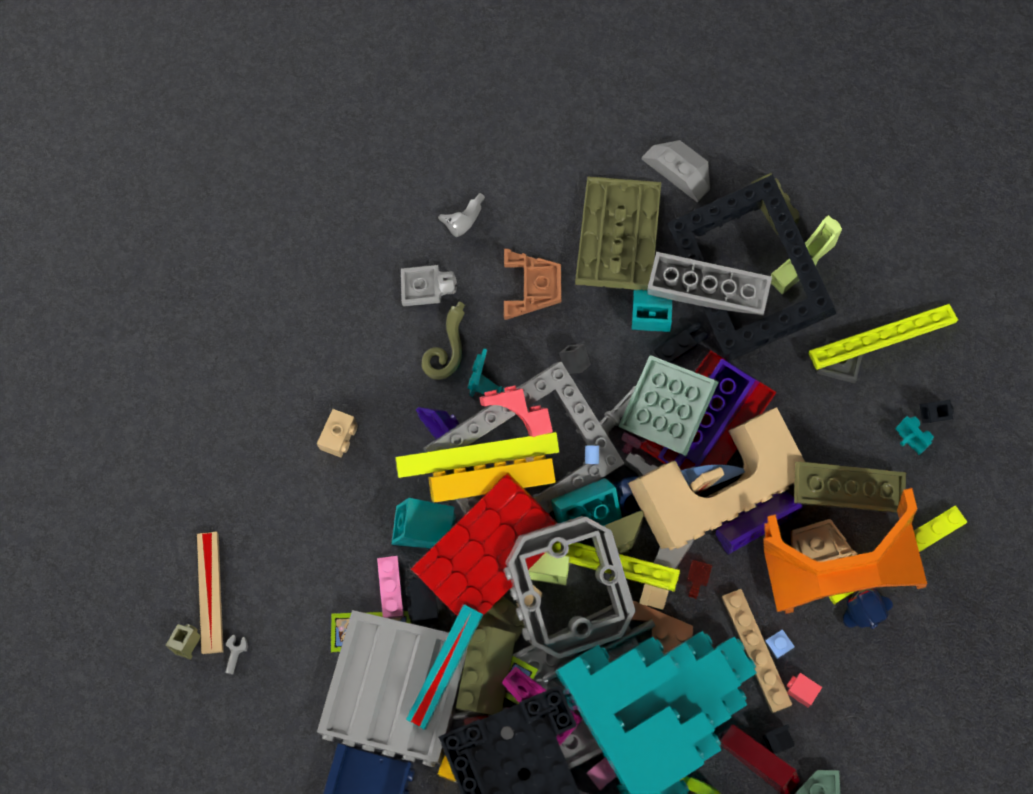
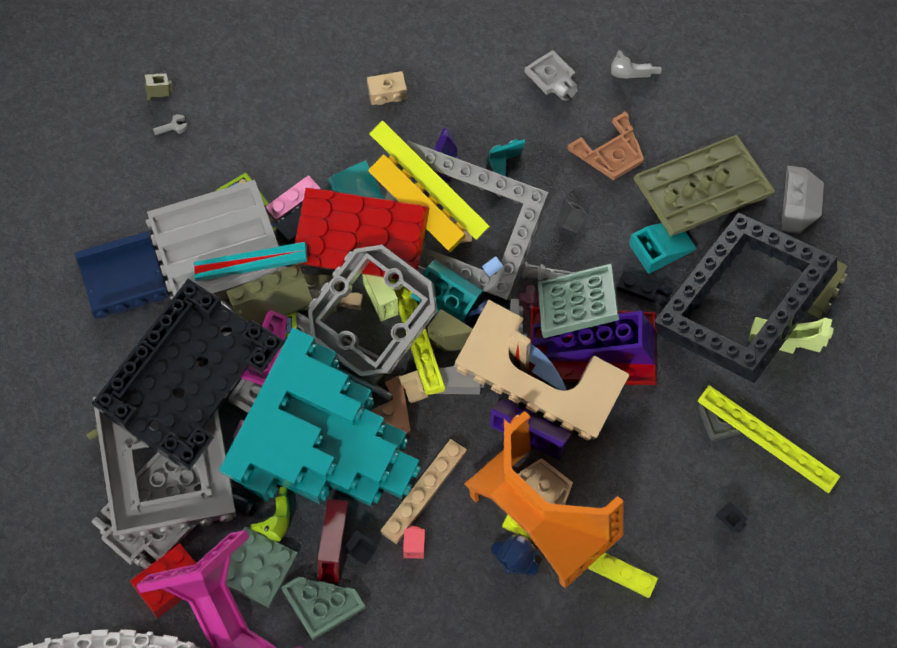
camera: 50 degrees right, 5 degrees down
(210, 593) = (205, 82): tan tile -> none
(452, 326) = (536, 113): olive plant -> none
(535, 420) = (485, 202): coral arch -> none
(699, 575) = (455, 411): clear red plate -> none
(708, 284) = (701, 266): light grey slope -> none
(779, 644) = (441, 505): light blue plate -> none
(848, 487) = (607, 474): olive plate -> none
(913, 436) = (693, 510): teal hips -> none

